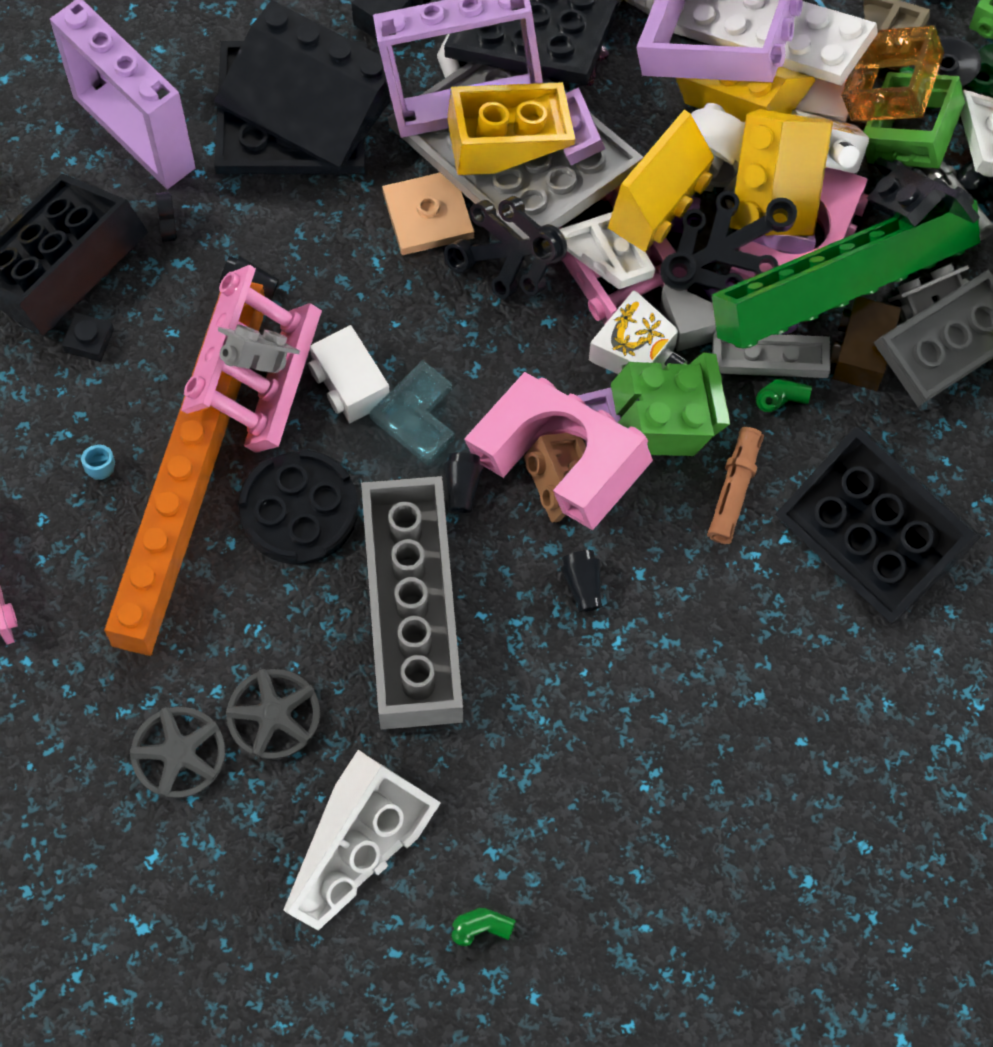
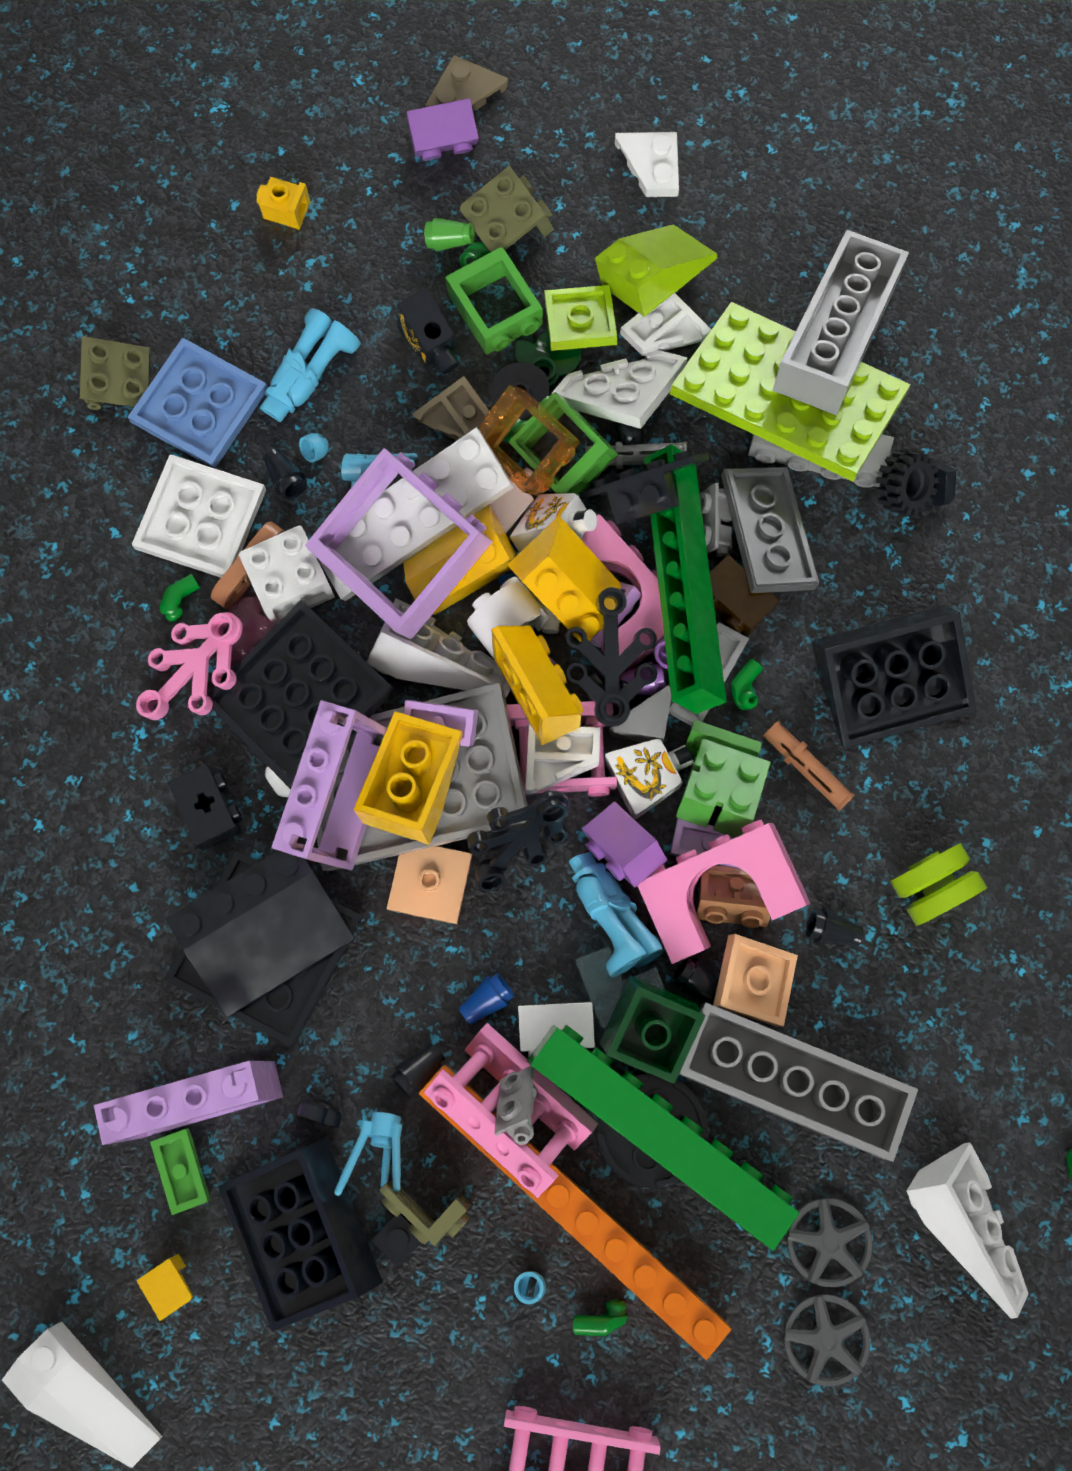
camera: 60 degrees left, 10 degrees up
(60, 135) = (180, 1171): none -> bright green plate
(94, 540) = (604, 1324): none -> green arm
(120, 350) = (423, 1226): none -> olive bracket
(175, 275) = (384, 1133): none -> medium azure plant
(294, 503) = (663, 1137): none -> green brick
(346, 306) = (486, 999): none -> blue cone
(390, 440) = (652, 1029): none -> dark green brick
(489, 362) = (616, 914): none -> medium azure piece
(491, 524) = (755, 980): none -> light nougat plate
(554, 345) = (624, 844): none -> medium lavender brick
(637, 103) = (433, 658): none -> white wedge
(682, 645) = (938, 884): none -> lime wheel

